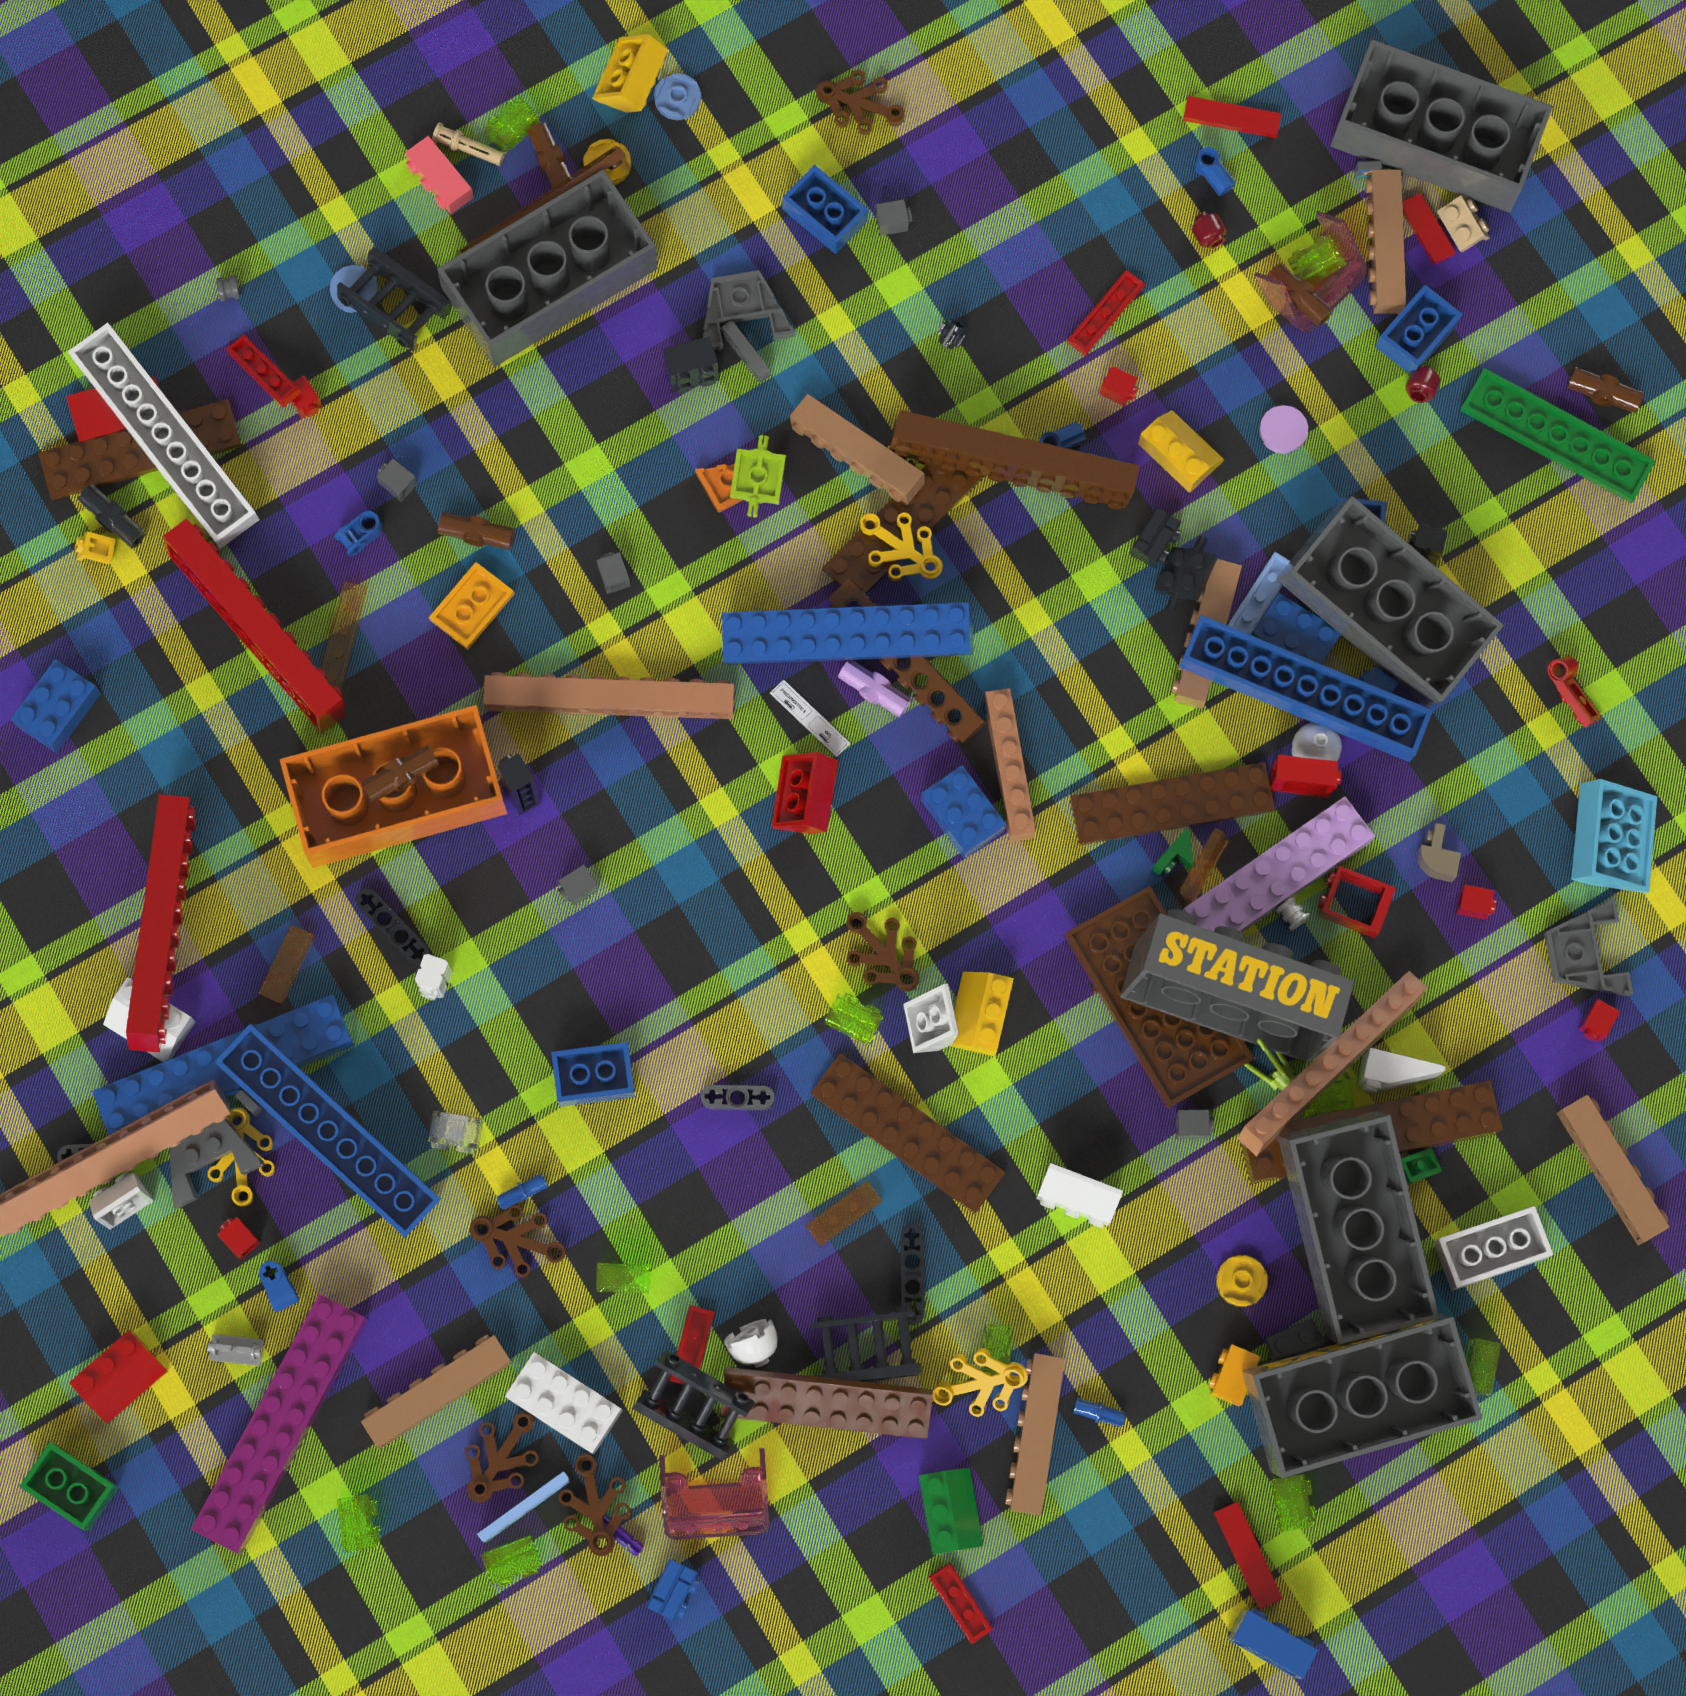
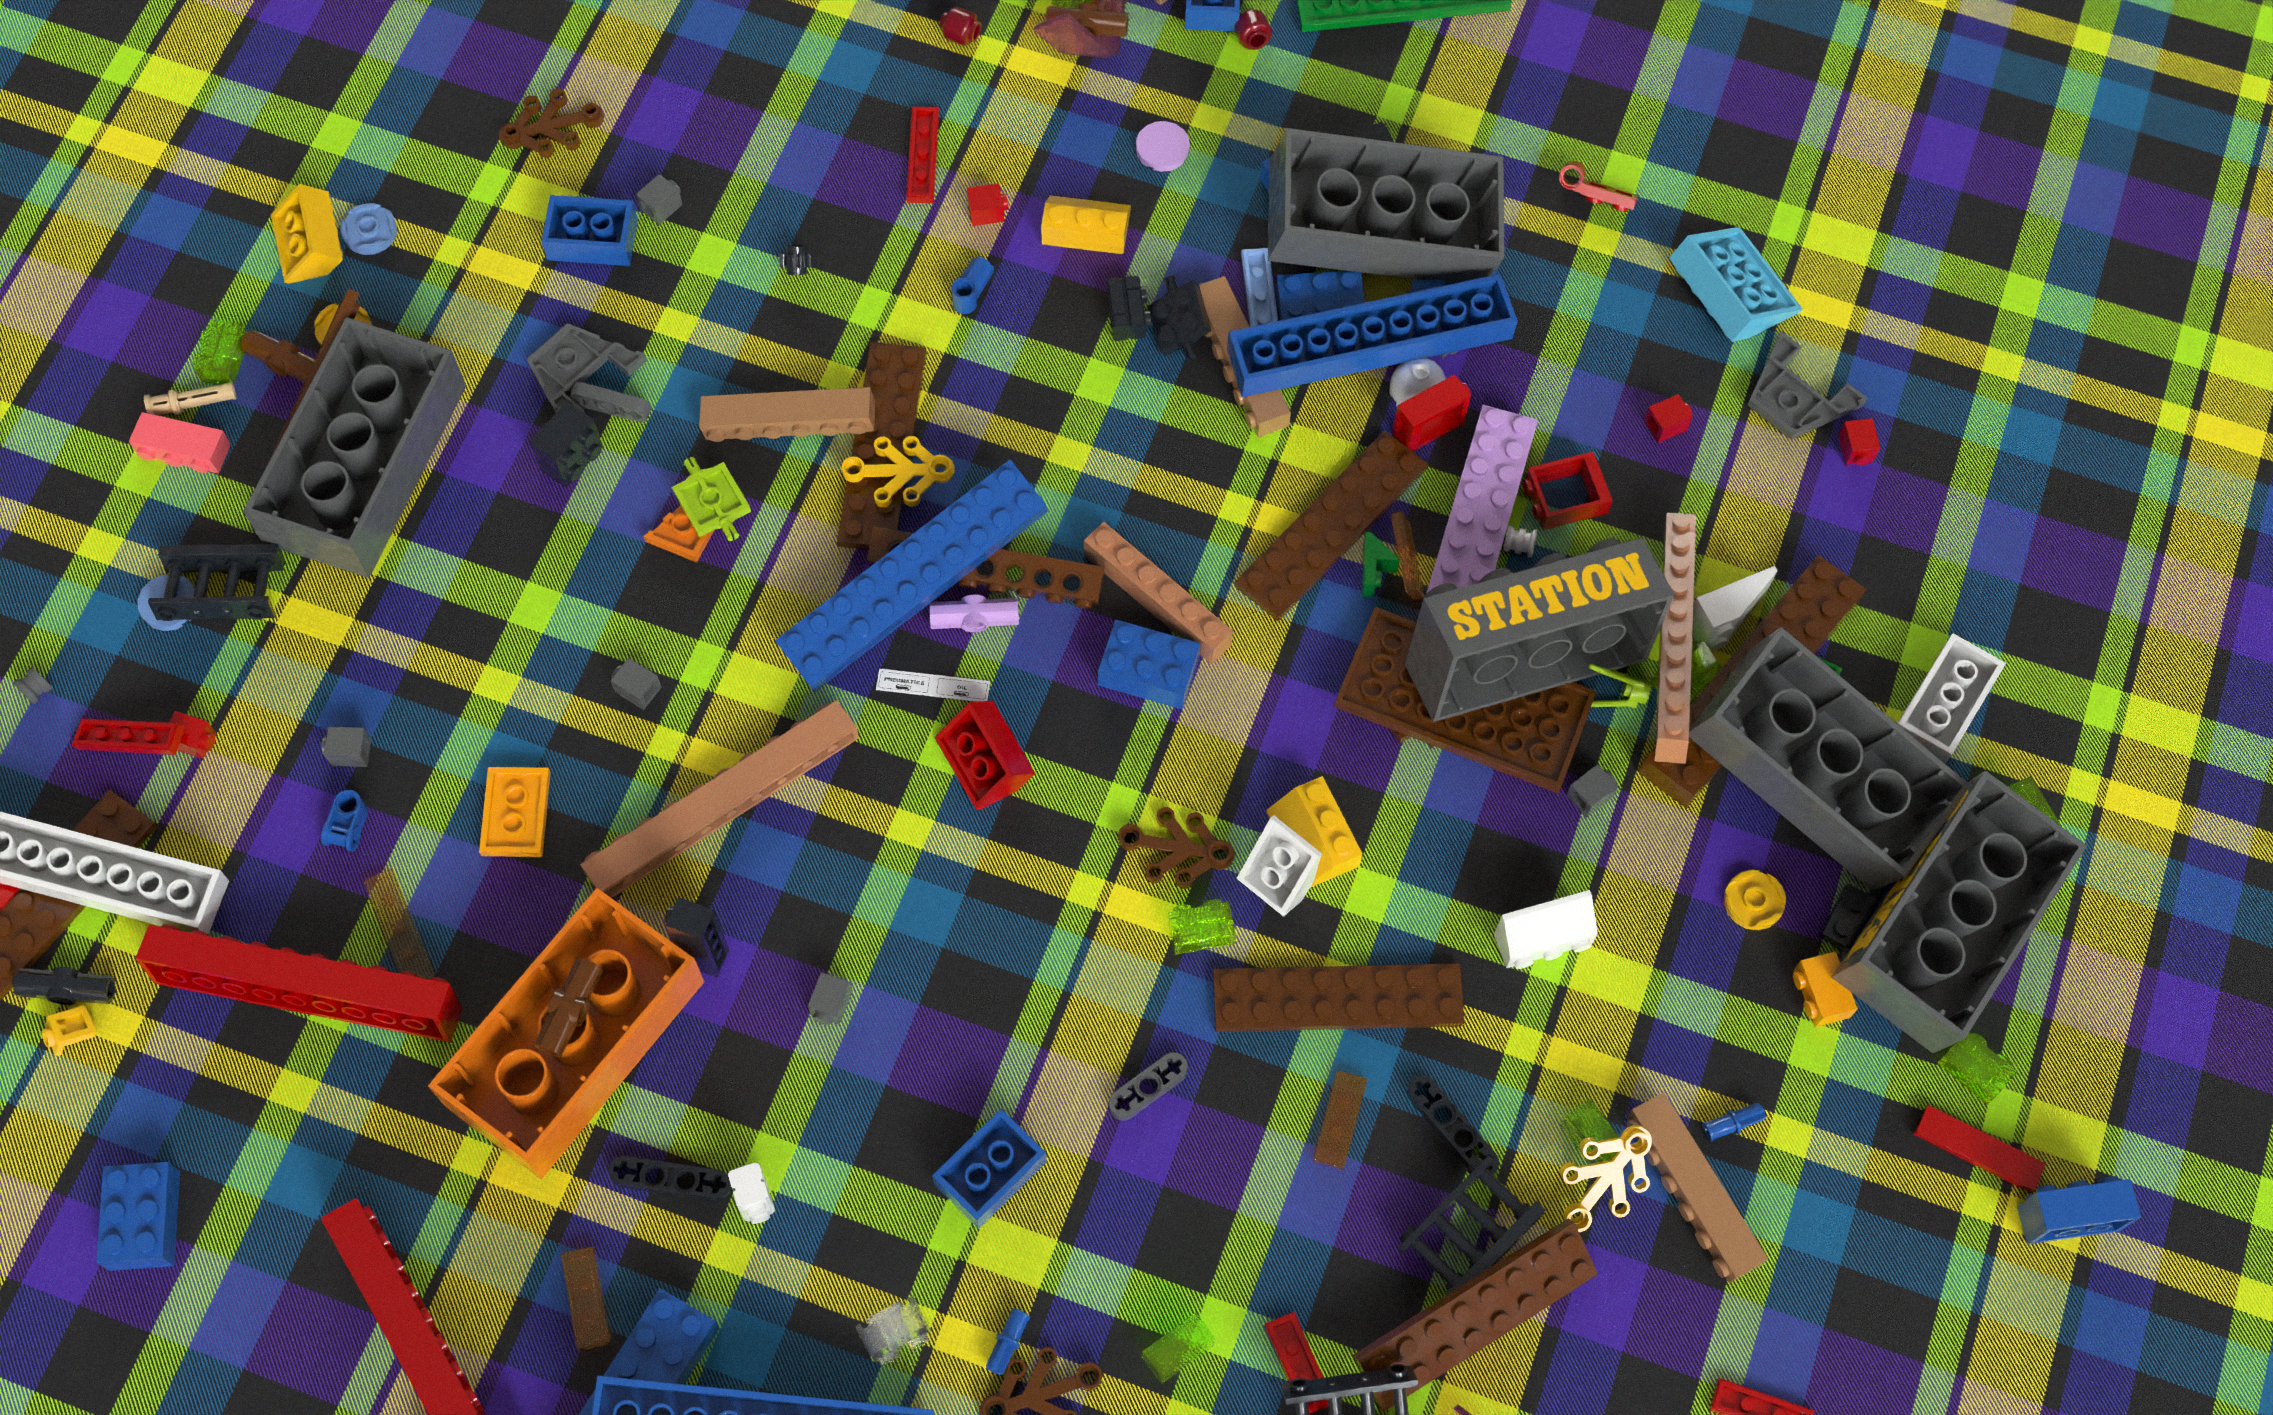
camera: 35 degrees left, 10 degrees down
(476, 531) = (465, 739): reddish brown piece -> none
(754, 1343) = (1359, 1311): white cylinder -> none
(950, 1511) = (1677, 1328): green slope -> none
(1013, 460) = (942, 322): reddish brown brick -> none
(1436, 861) = (1601, 407): dark tan brick -> none
(1613, 1170) = (1984, 558): medium nougat brick -> none

